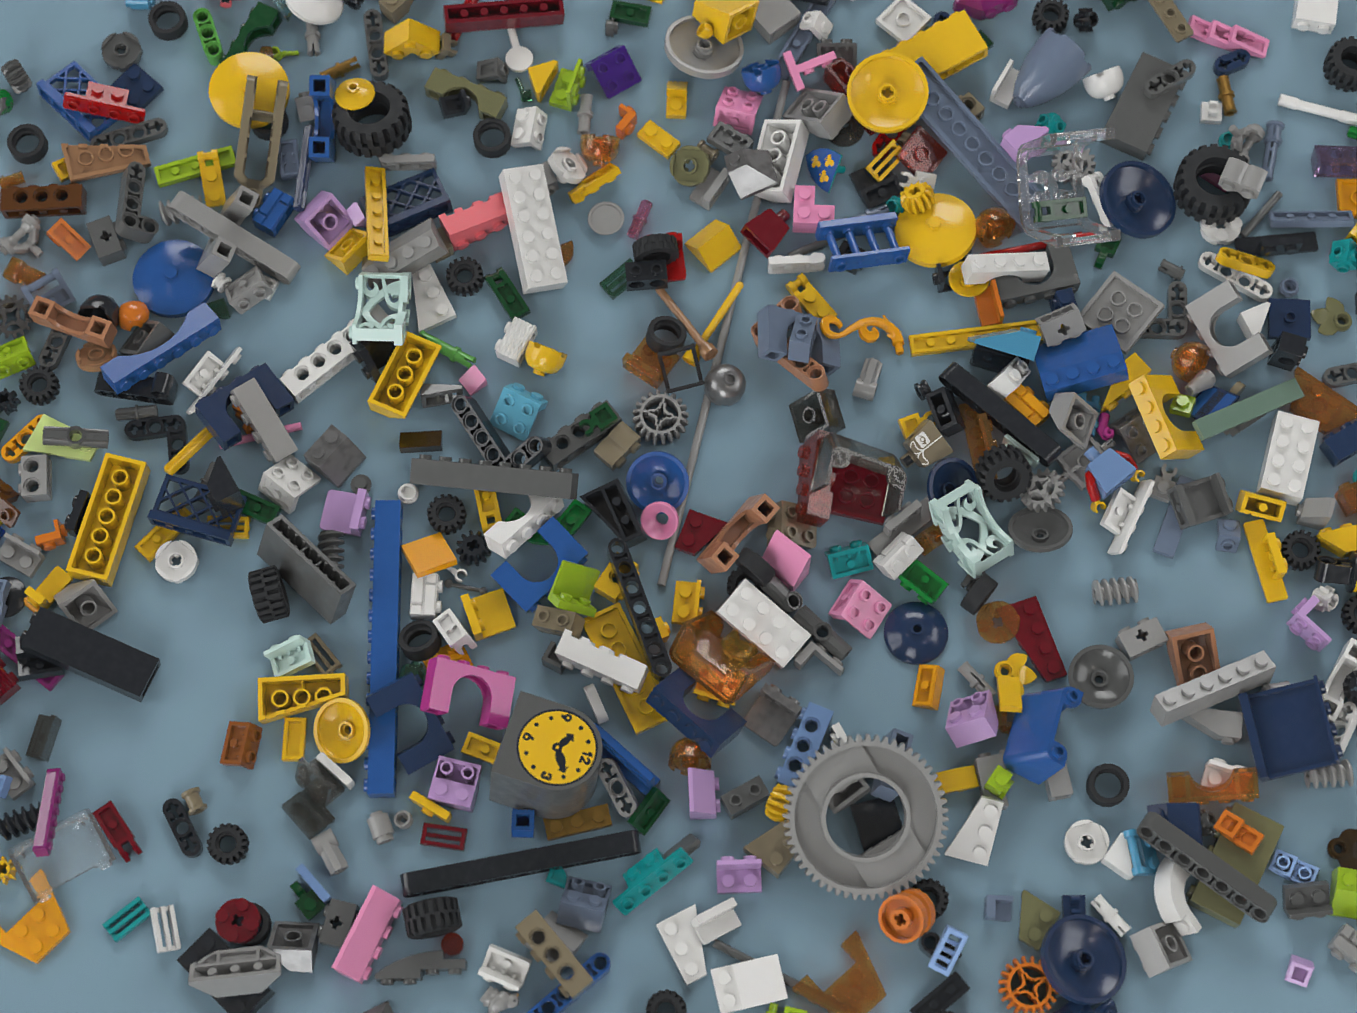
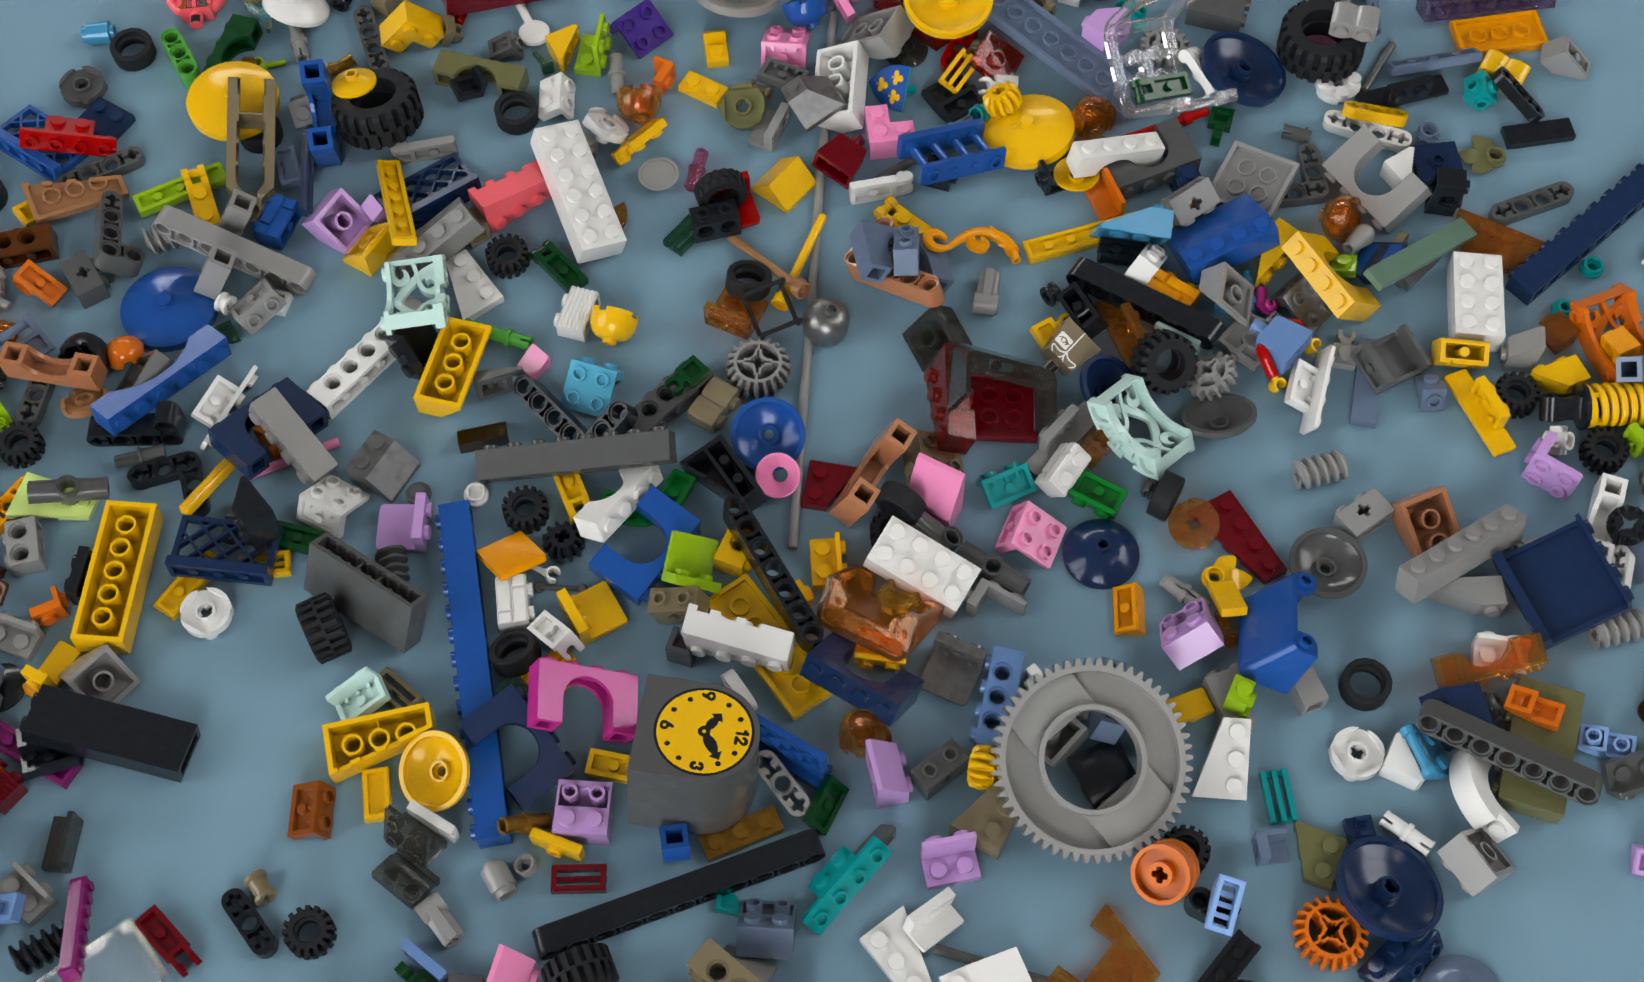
camera: 10 degrees left, 10 degrees down
(407, 786) = (524, 823): none -> pearl gold pin
(1014, 848) = (1274, 775): none -> teal tile

